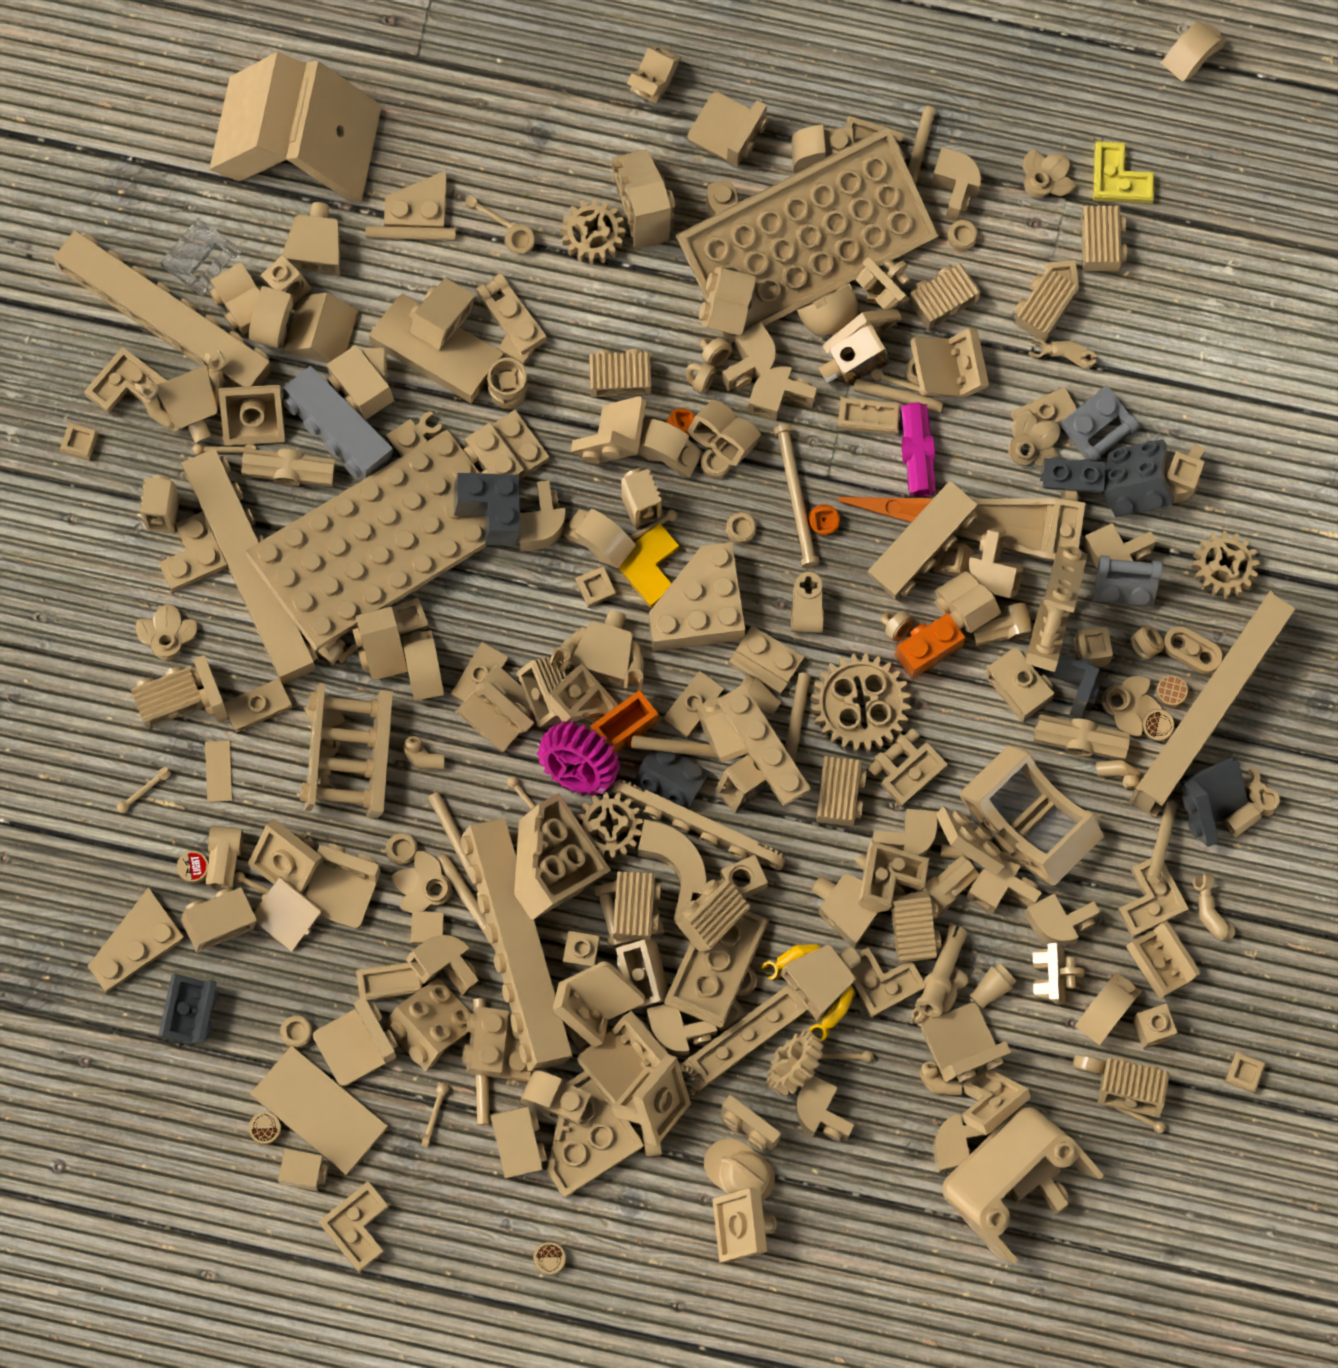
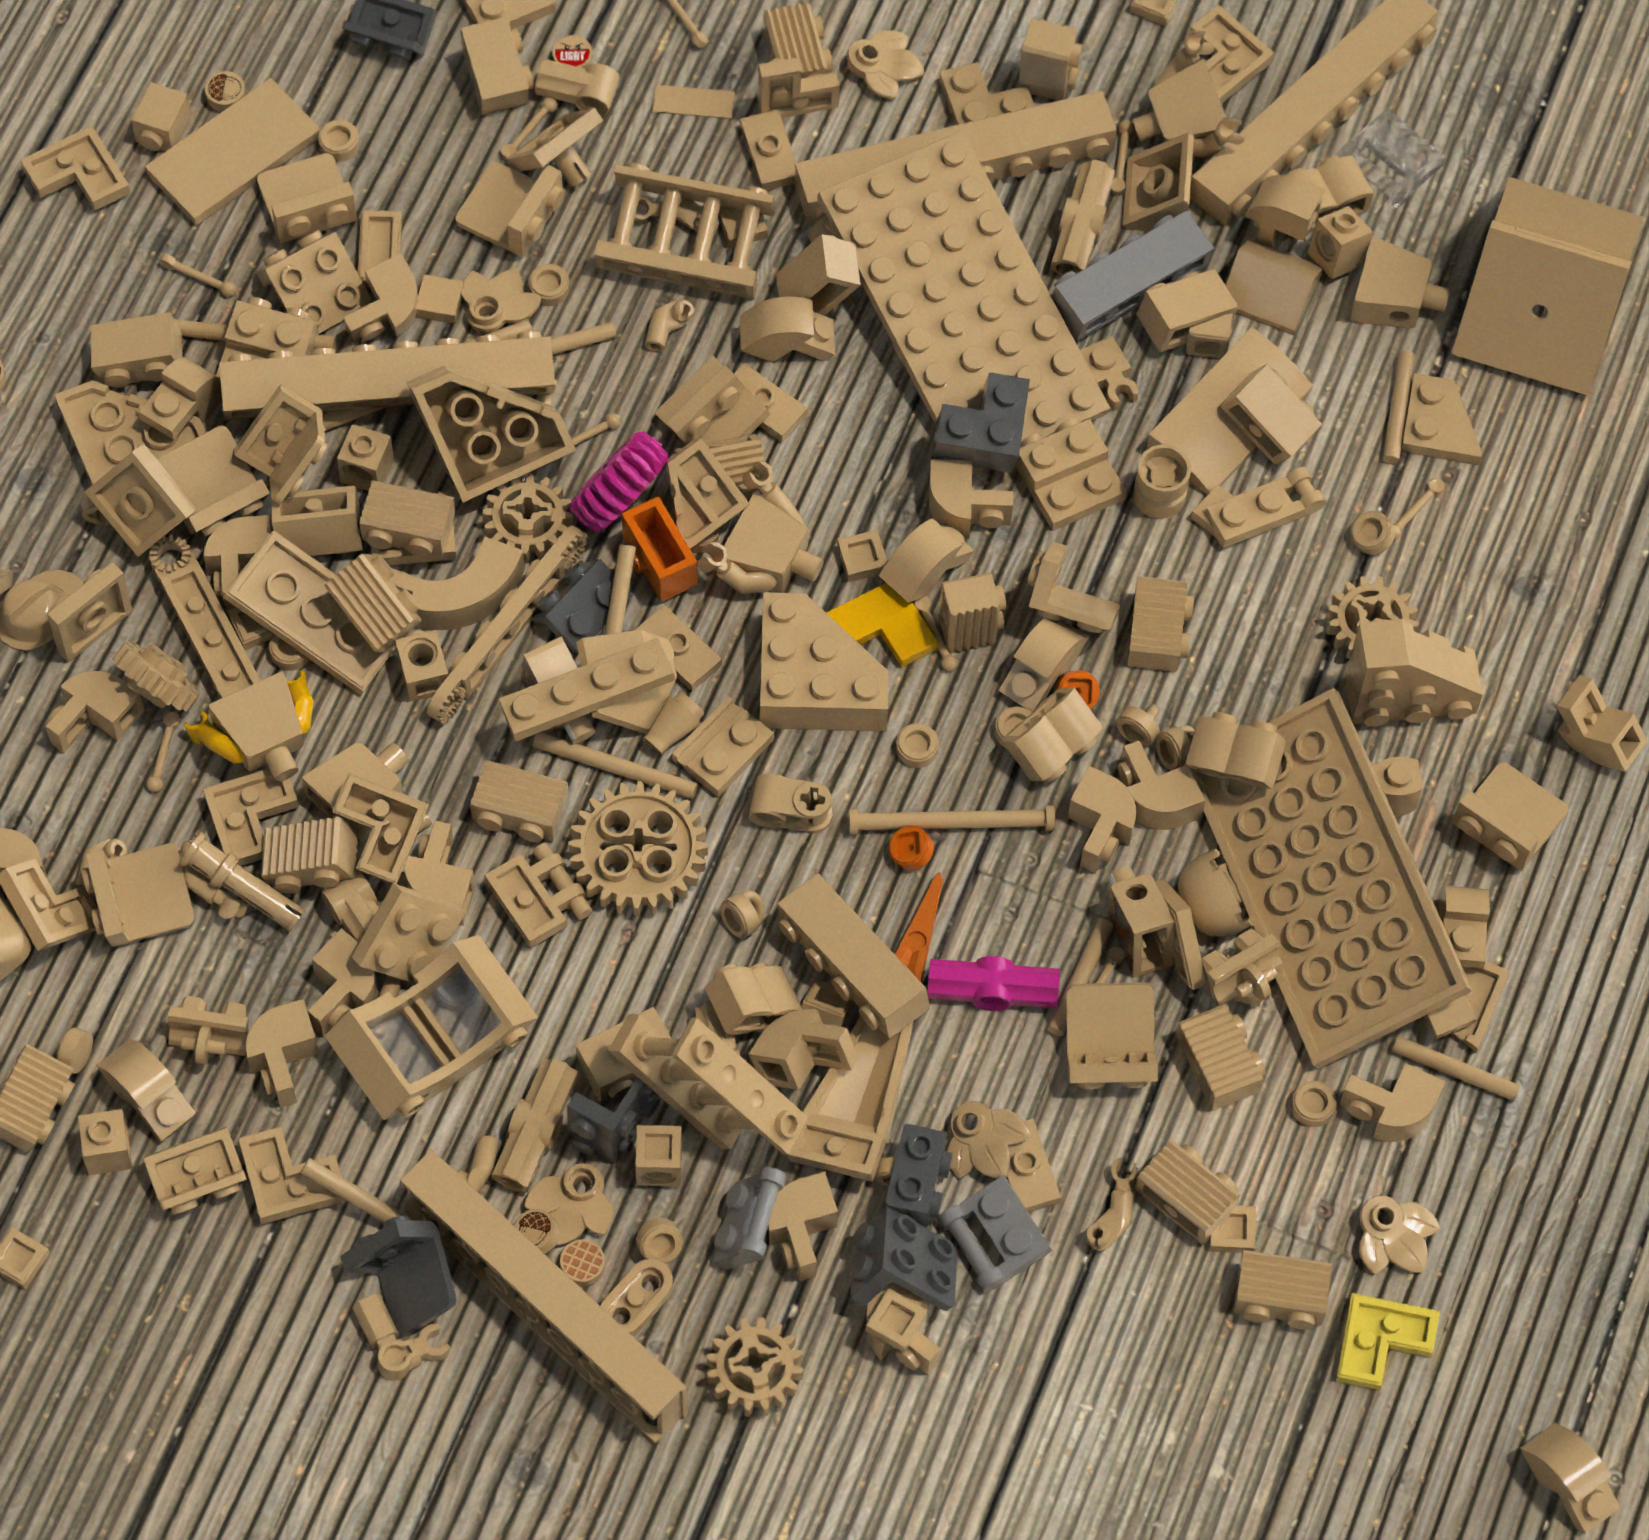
camera: 100 degrees right, 10 degrees down
(286, 914) = (489, 144): tan piece -> none
(410, 617) = (857, 333): tan tile -> none
(869, 416) = (1054, 928): tan plate -> none
(929, 645) = (699, 940): orange brick -> none
(993, 985) = (213, 952): tan cone -> none
(1207, 912) = (224, 1256): tan arm -> none

